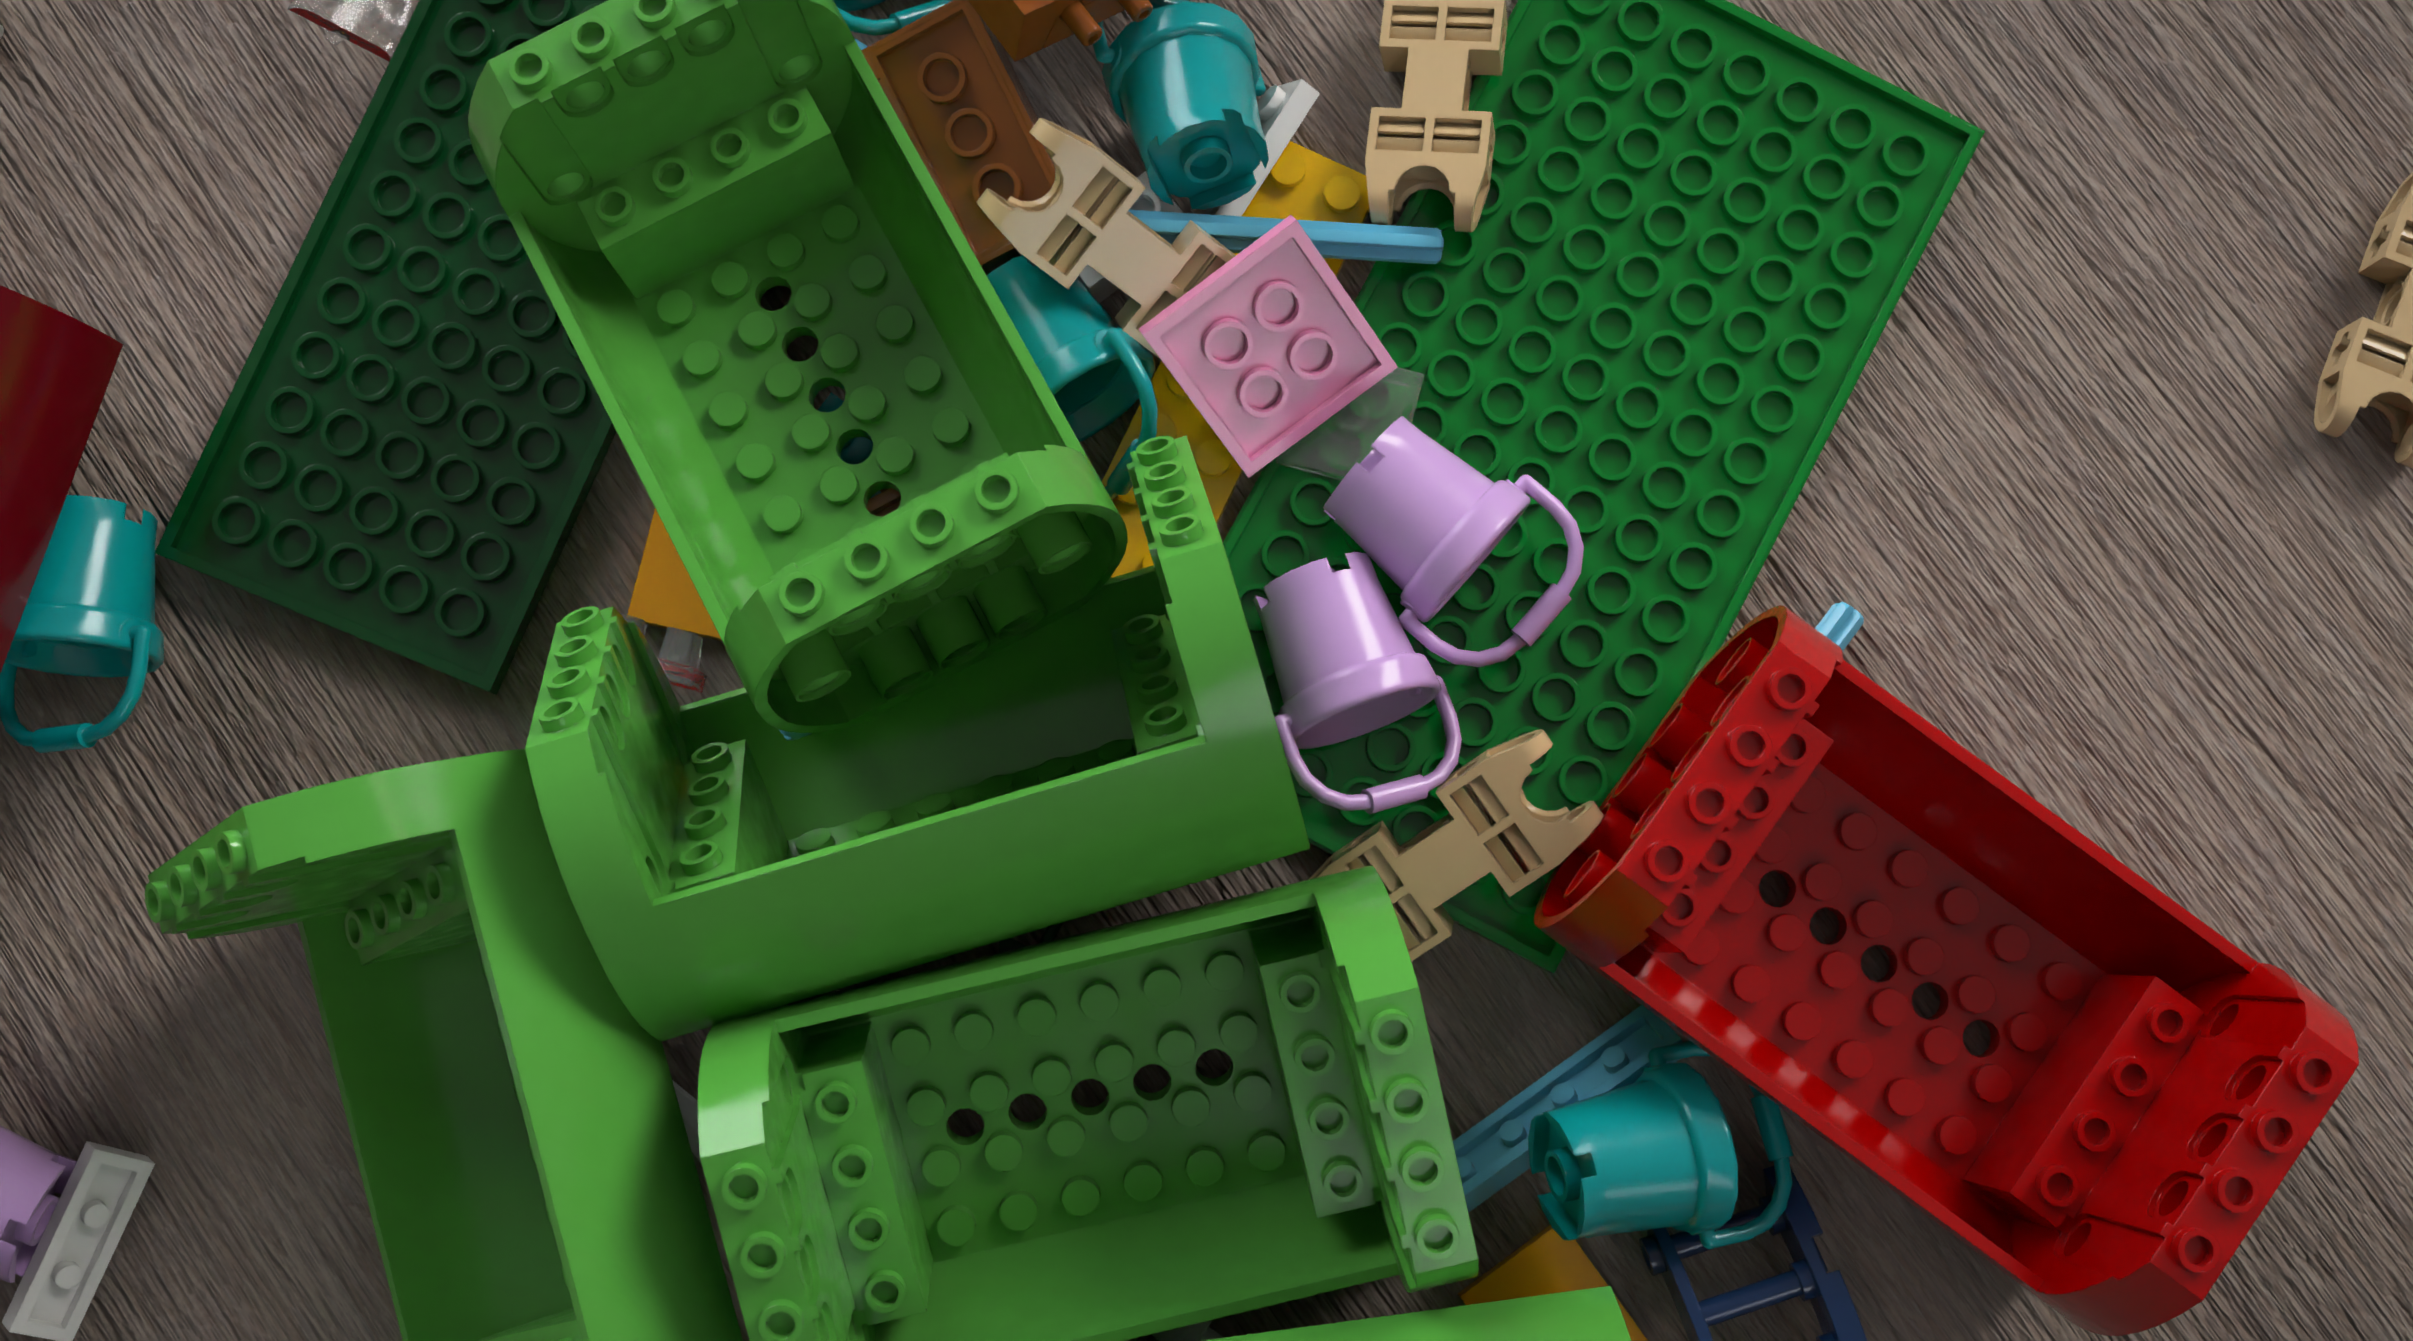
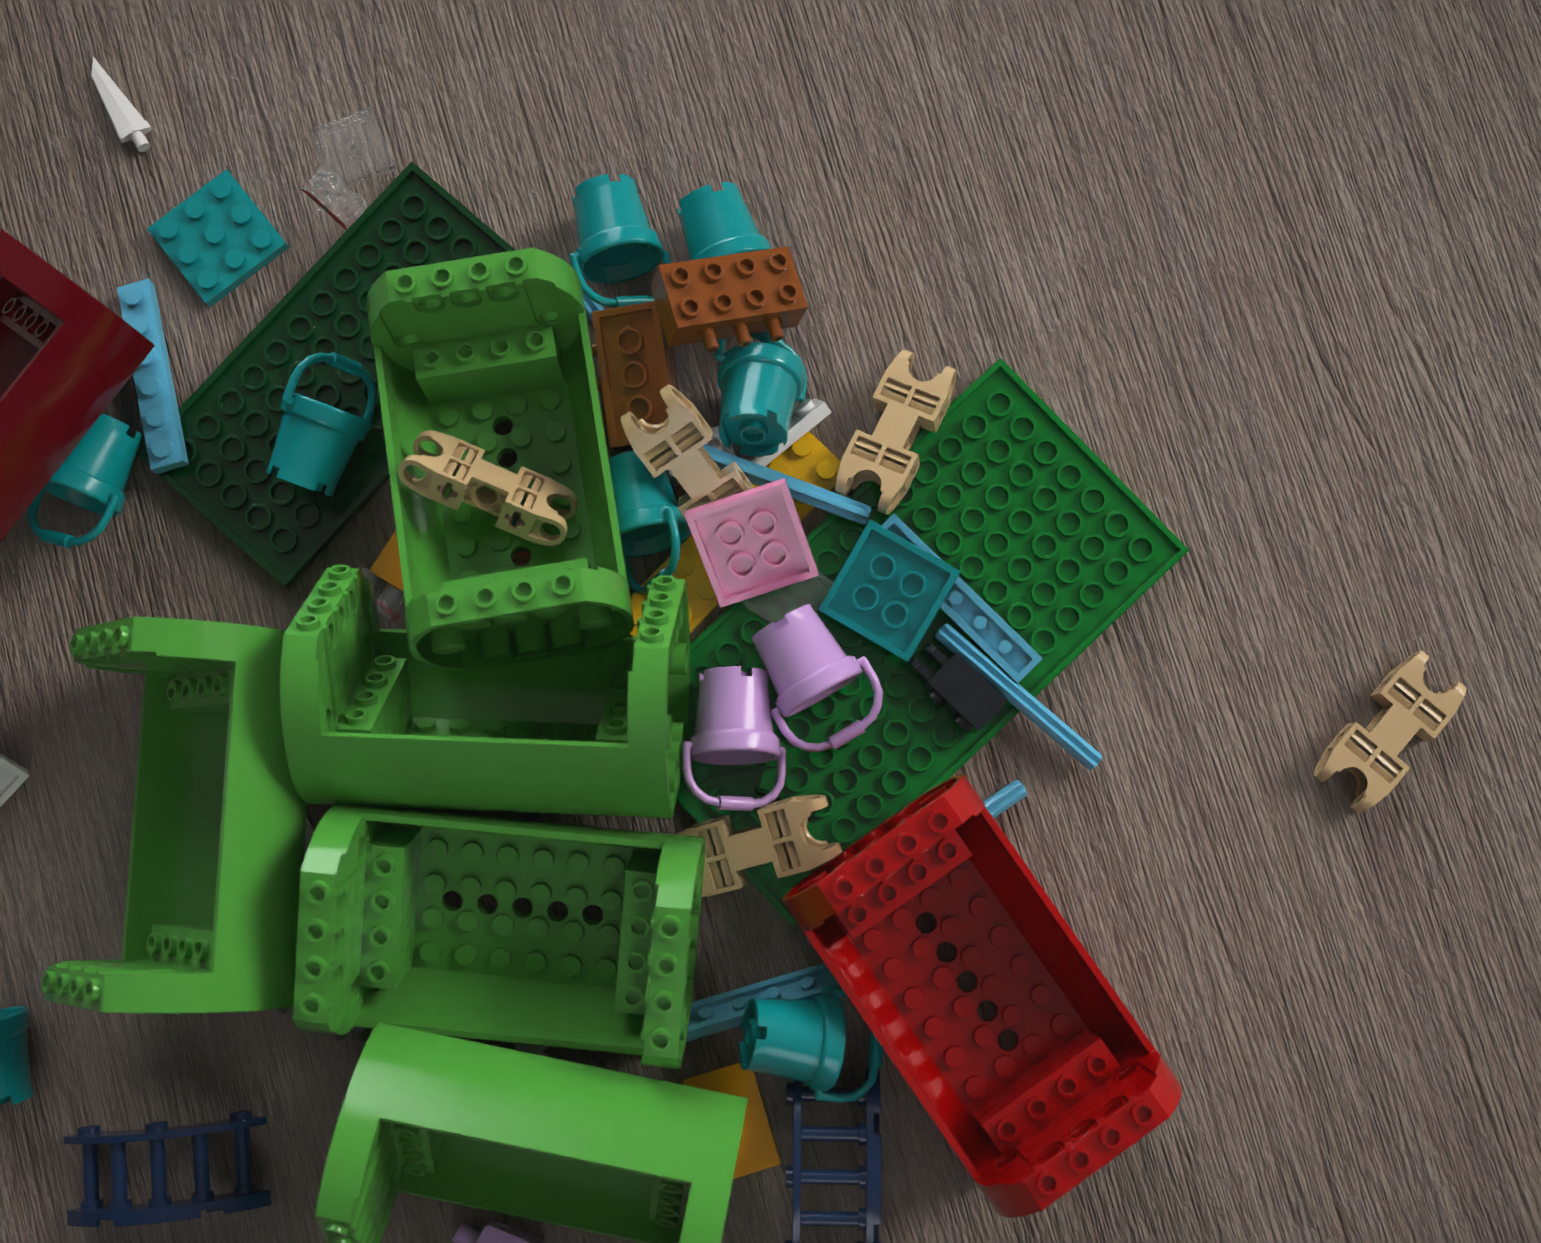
camera: 20 degrees right, 0 degrees up
(149, 423) = (154, 380): none -> medium azure plate
(174, 144) = (218, 238): none -> teal plate
(456, 408) = (316, 437): none -> teal piece
(751, 395) = (471, 483): none -> tan piece
(1387, 760) = (744, 783): none -> dark green piece
(1523, 353) = (889, 590): none -> teal plate
(1636, 332) = (978, 618): none -> medium azure plate
(1695, 481) = (959, 689): none -> black hinge
(1795, 461) = (1019, 697): none -> medium azure axle

